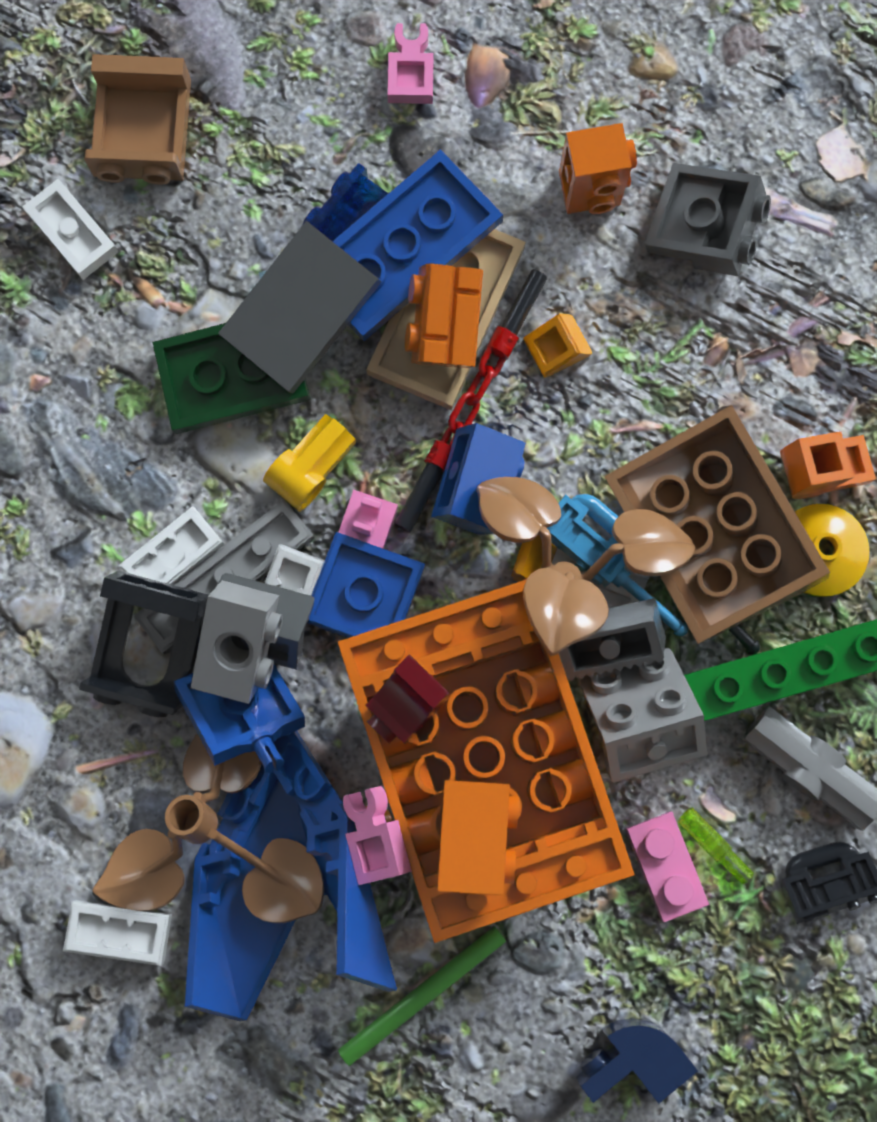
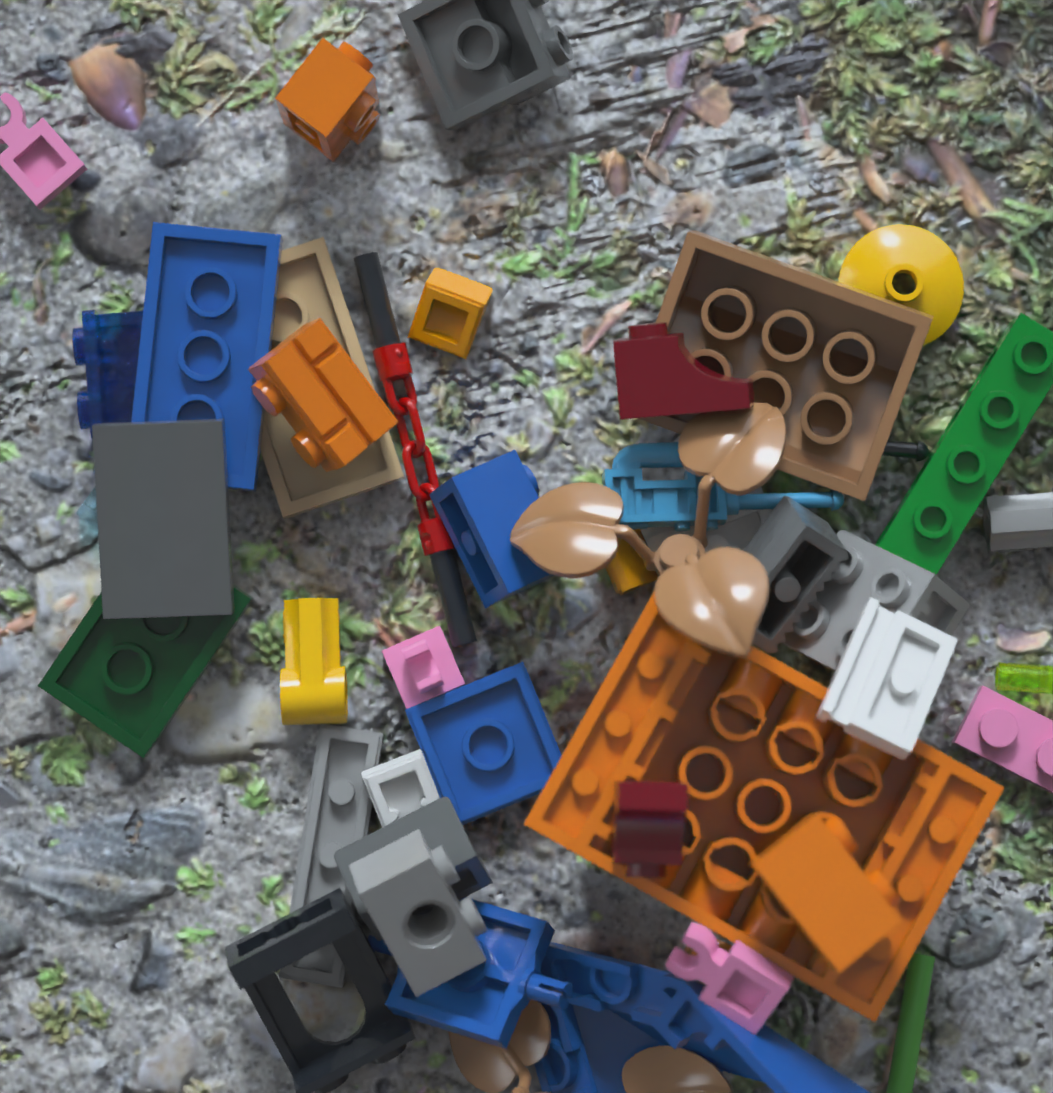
camera: 45 degrees left, 5 degrees up
(175, 550) = (258, 875): white plate -> none
(622, 748) = (887, 679): none -> white plate
(643, 471) = (664, 379): none -> dark red arch
(826, 464) = (833, 199): orange brick -> none

